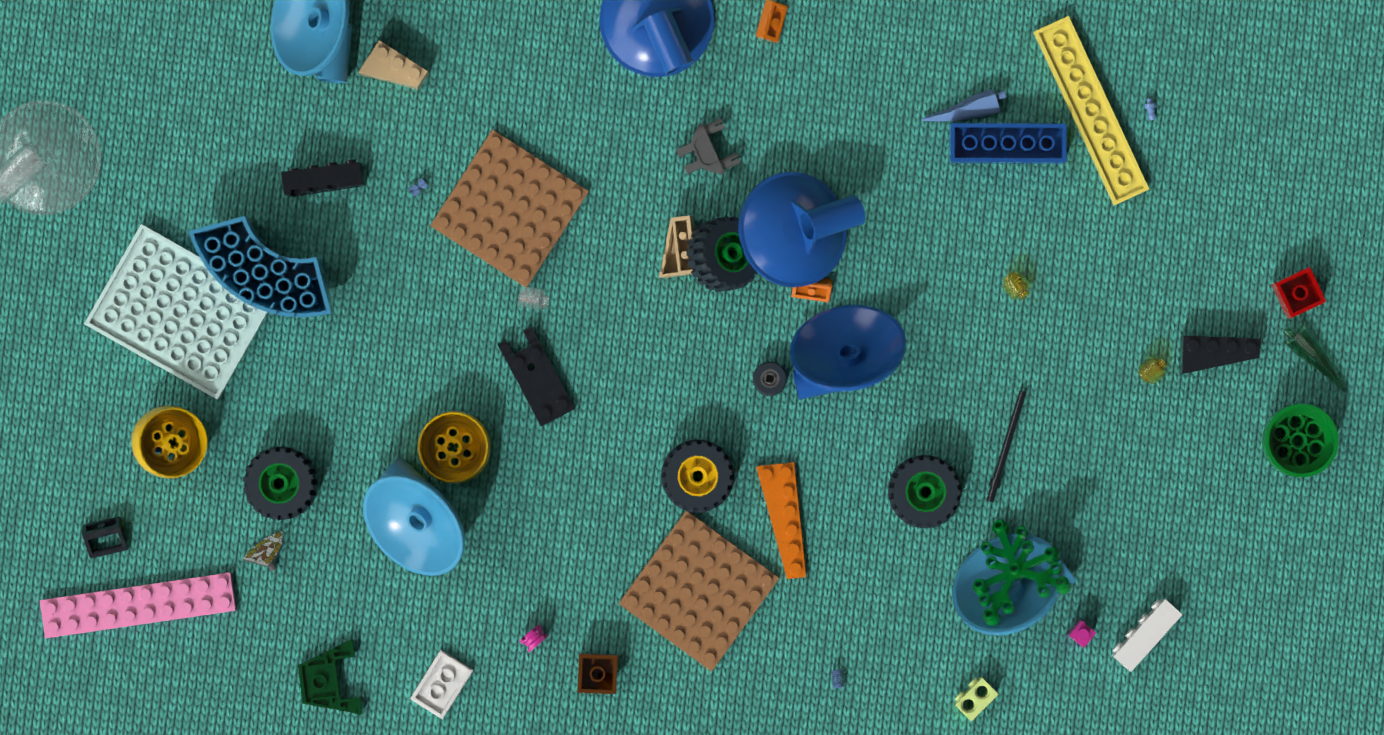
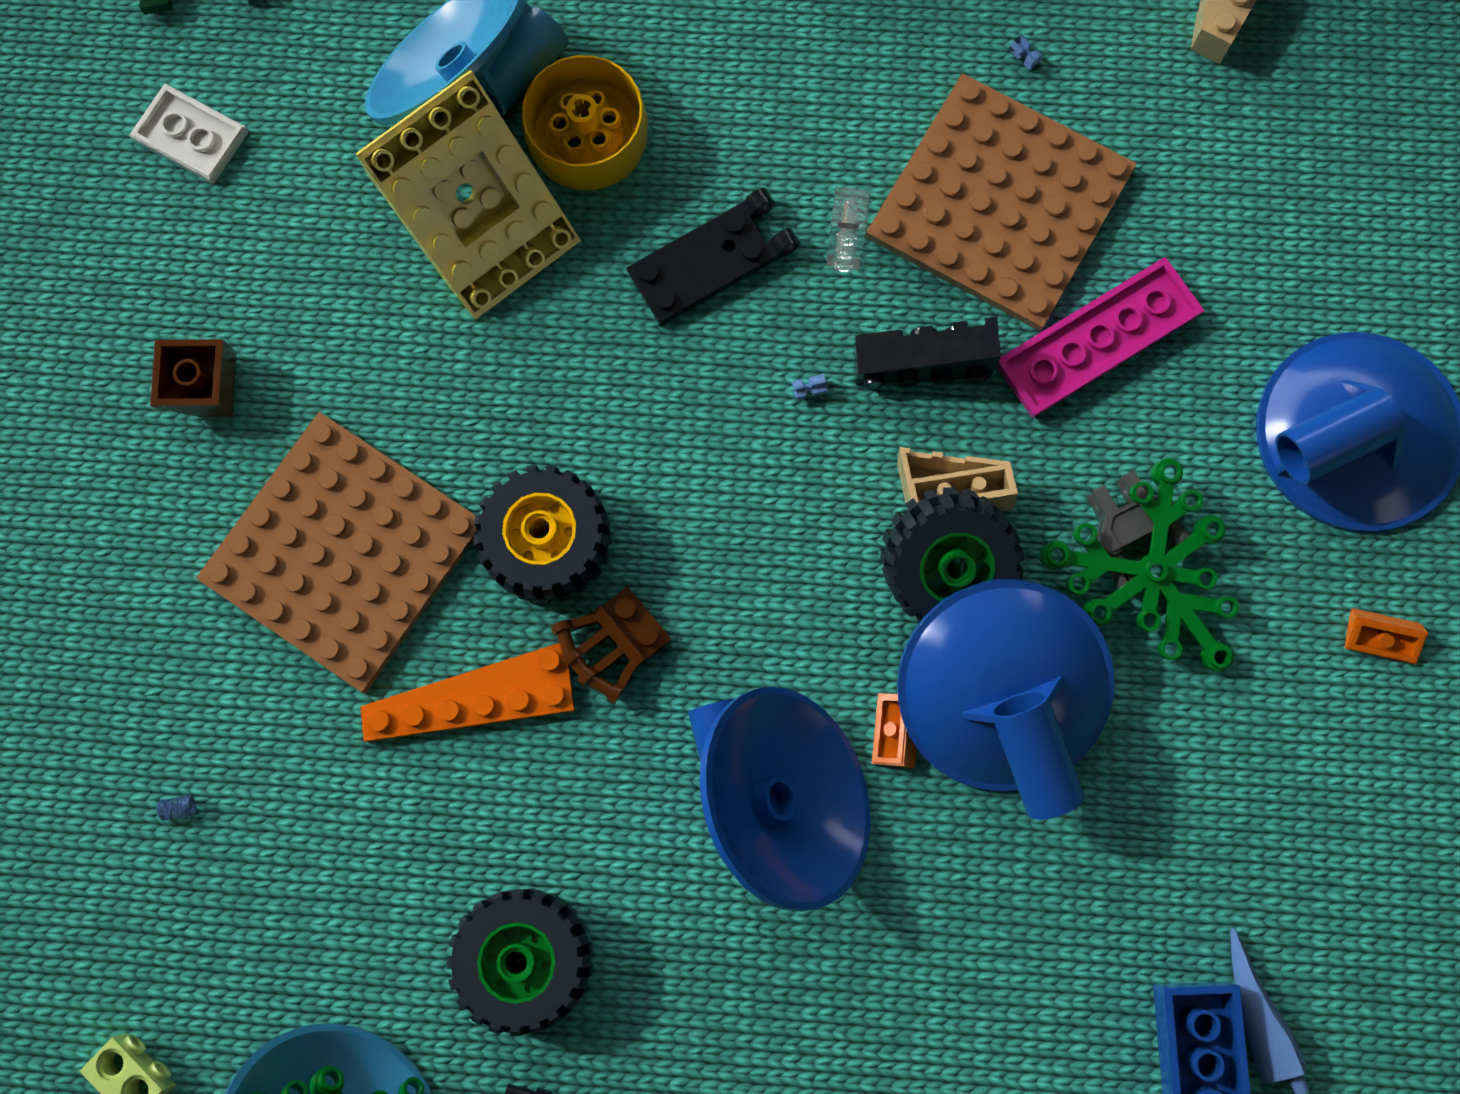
camera: 95 degrees right, 10 degrees down
(518, 498) = (506, 225): none -> light yellow slope
(534, 637) = (259, 270): dark pink wheel -> none
(596, 160) = (1099, 337): none -> dark pink plate
(603, 259) = (927, 355): none -> black wedge
(616, 321) = (816, 386): none -> medium blue piece
(752, 131) = (1179, 605): none -> green plant
(752, 429) = (627, 626): none -> reddish brown plate
(764, 376) = (730, 669): black wheel -> none

